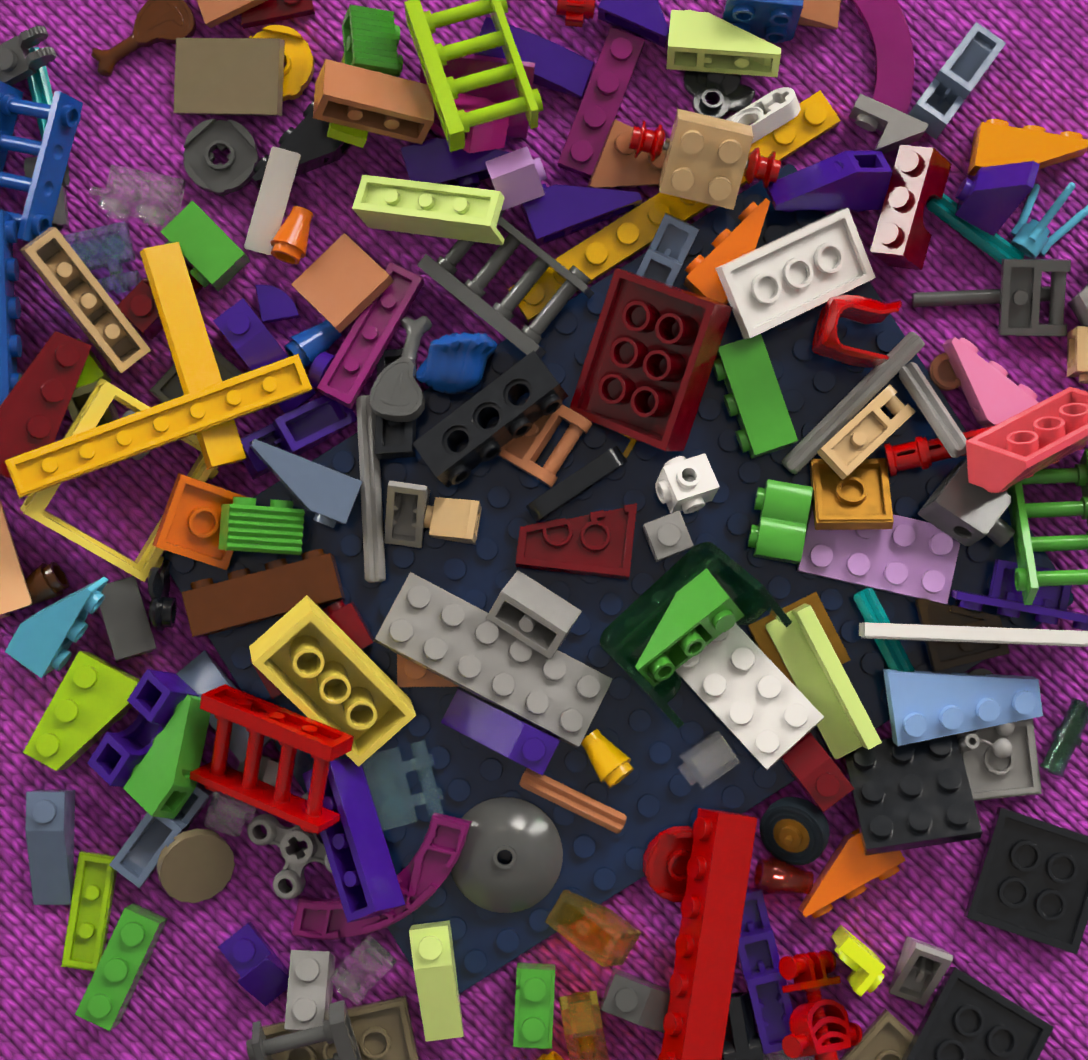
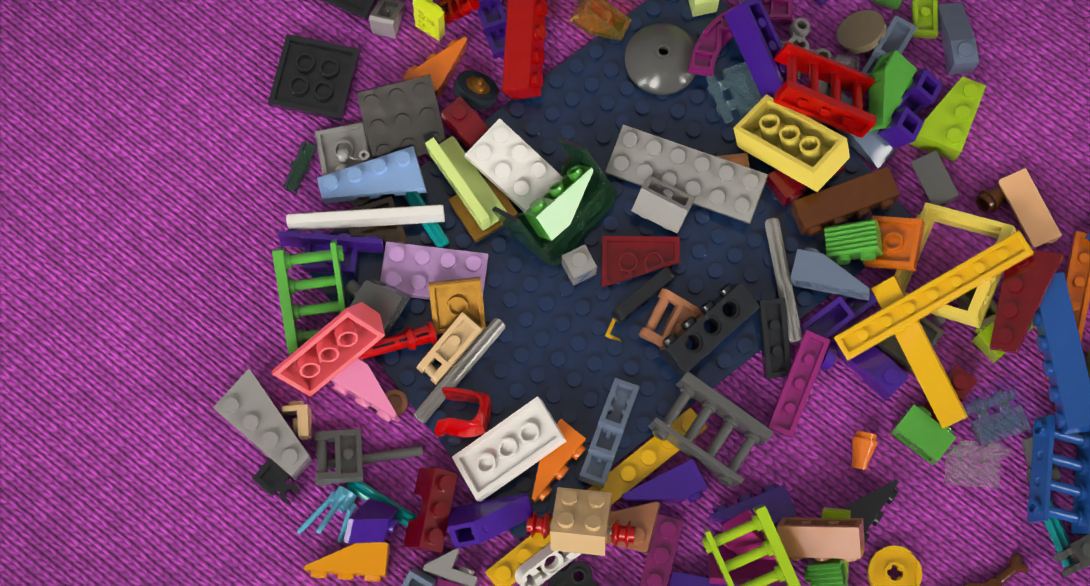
camera: 170 degrees right, 10 degrees down
(47, 635) = (981, 167): medium azure slope -> none
(85, 299) = (1000, 381): tan brick -> none
(162, 607) = (911, 189): black plate -> none
(199, 156) = (938, 501): dark grey plate -> none
(229, 76) = (926, 556): dark tan tile -> none
(272, 199) = (881, 470): white sticker -> none
(275, 304) = (867, 401): dark purple tile -> none
(312, 342) = (837, 375): blue cone -> none
(342, 282) = (823, 418): nougat tile -> none
(395, 391) = (776, 342): dark grey piece -> none
(405, 513) = (757, 265): light grey slope -> none
(429, 209) = (771, 471): yellowish green panel -> none
(453, 519) = (724, 260): tan slope -> none
(456, 362) = (737, 367): blue hair -> none
(500, 731) = (673, 127): dark purple slope -> none
(517, 177) = (712, 498): lavender brick -> none
(573, 800) = (622, 94): nougat axle -> none
(608, 760) = (603, 121): yellow cone -> none
(650, 360) = (604, 378): dark red slope -> none
(667, 862) = (556, 64): red tile -> none
(686, 484) = (563, 306): white brick -> none
(707, 760) = (536, 126): clear brick -> none
(754, 397) = (529, 363): bright green brick -> none
(779, 877) = (483, 62): clear red cone -> none
(781, 521) = (501, 283): bright green brick -> none
(933, 410) = (405, 366): light grey axle -> none

